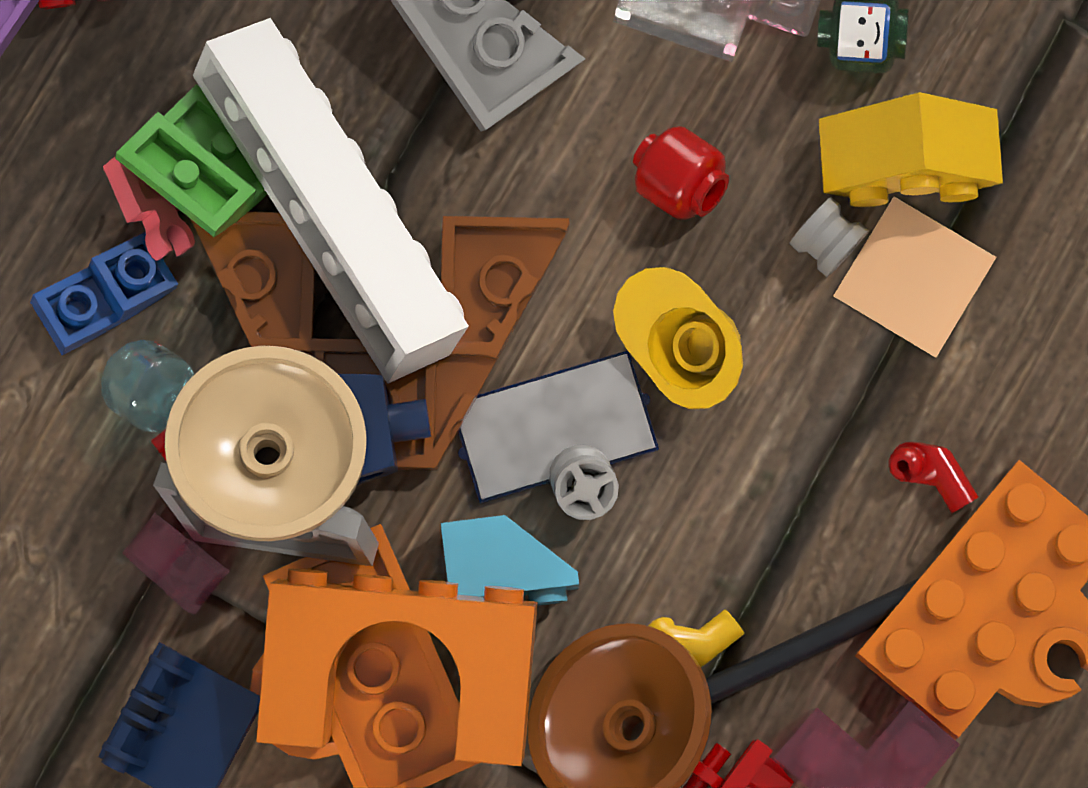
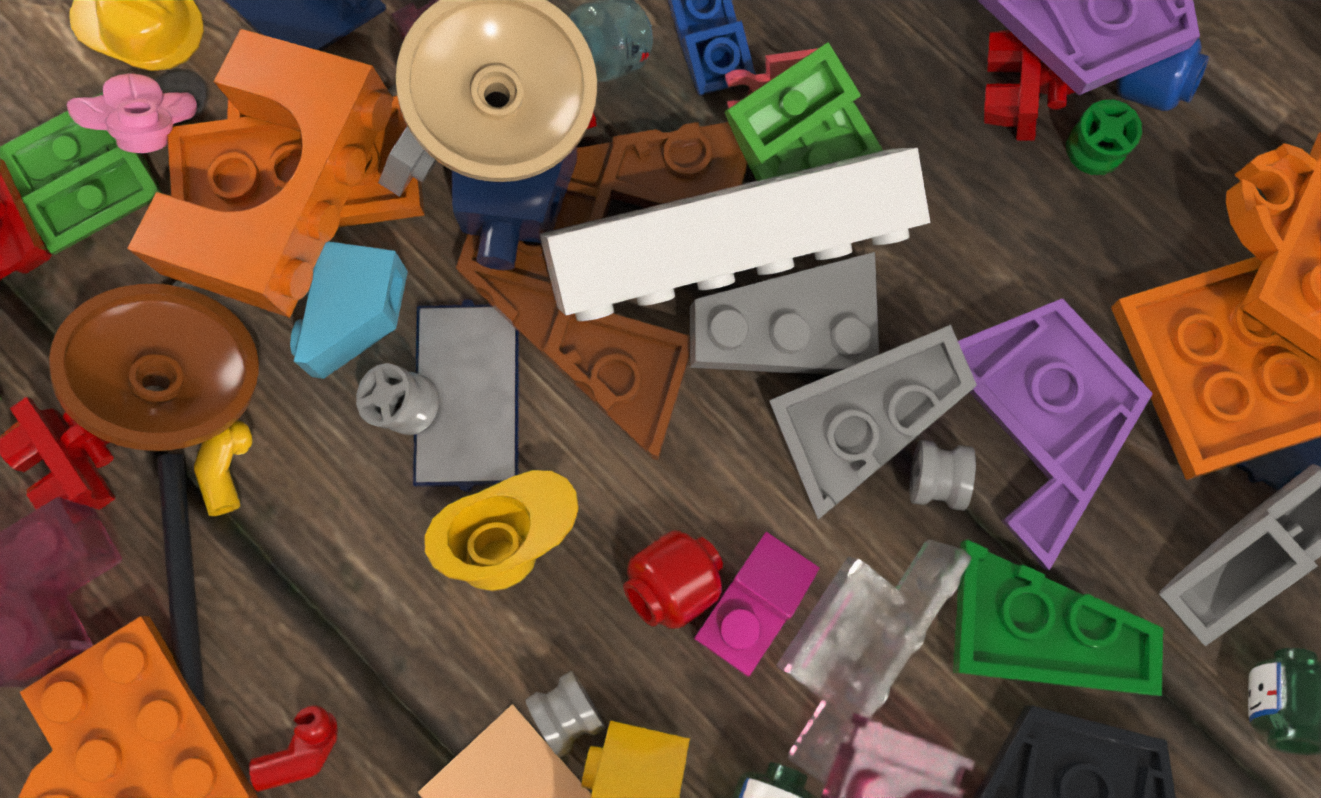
camera: 105 degrees right, 5 degrees down
(401, 124) = (791, 323): none -> light grey wing
(671, 93) = (757, 604): none -> dark pink slope

